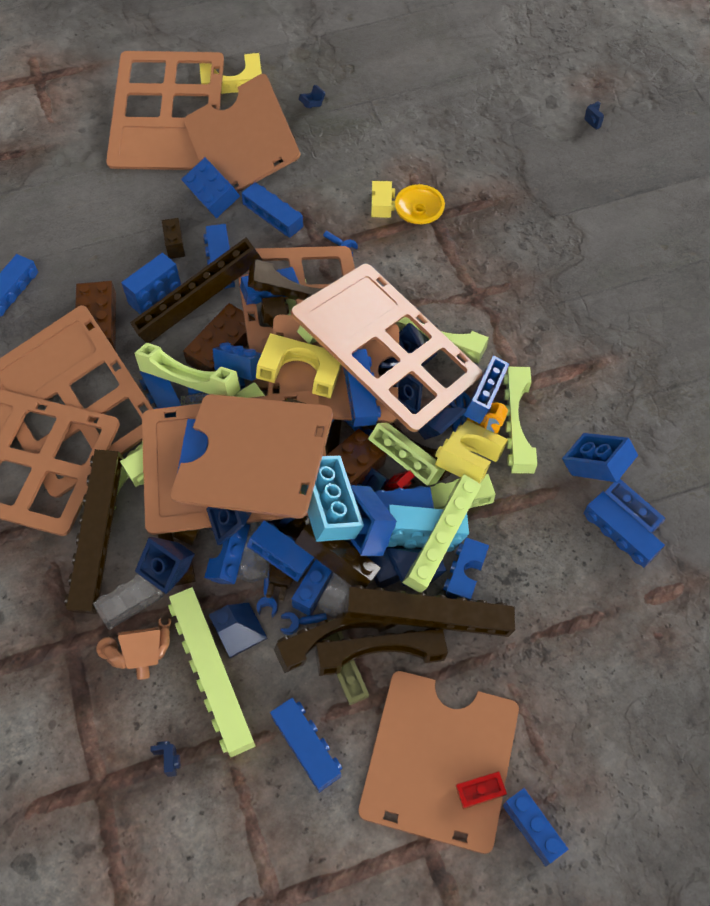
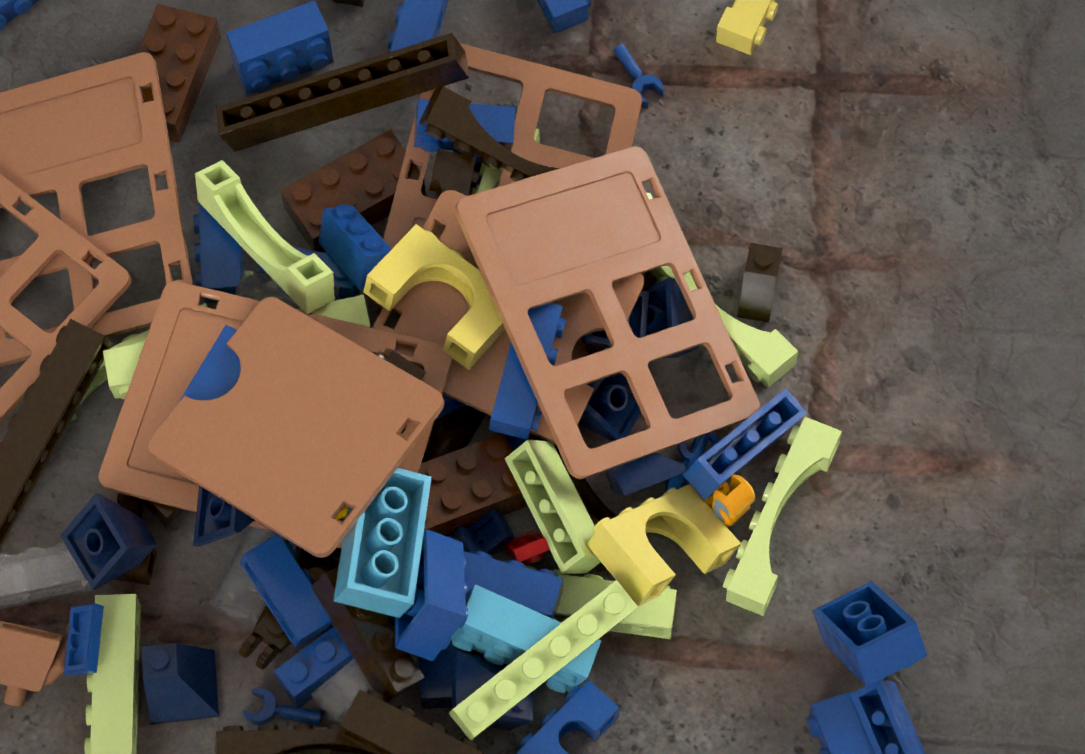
camera: 25 degrees right, 5 degrees up
(173, 623) = (83, 640): none -> blue plate
(226, 565) = (201, 578): blue arch -> none
(263, 602) = (235, 659): blue piece -> none
(419, 204) = (808, 38): yellow dish -> none
(450, 313) = (759, 282): none -> dark brown slope

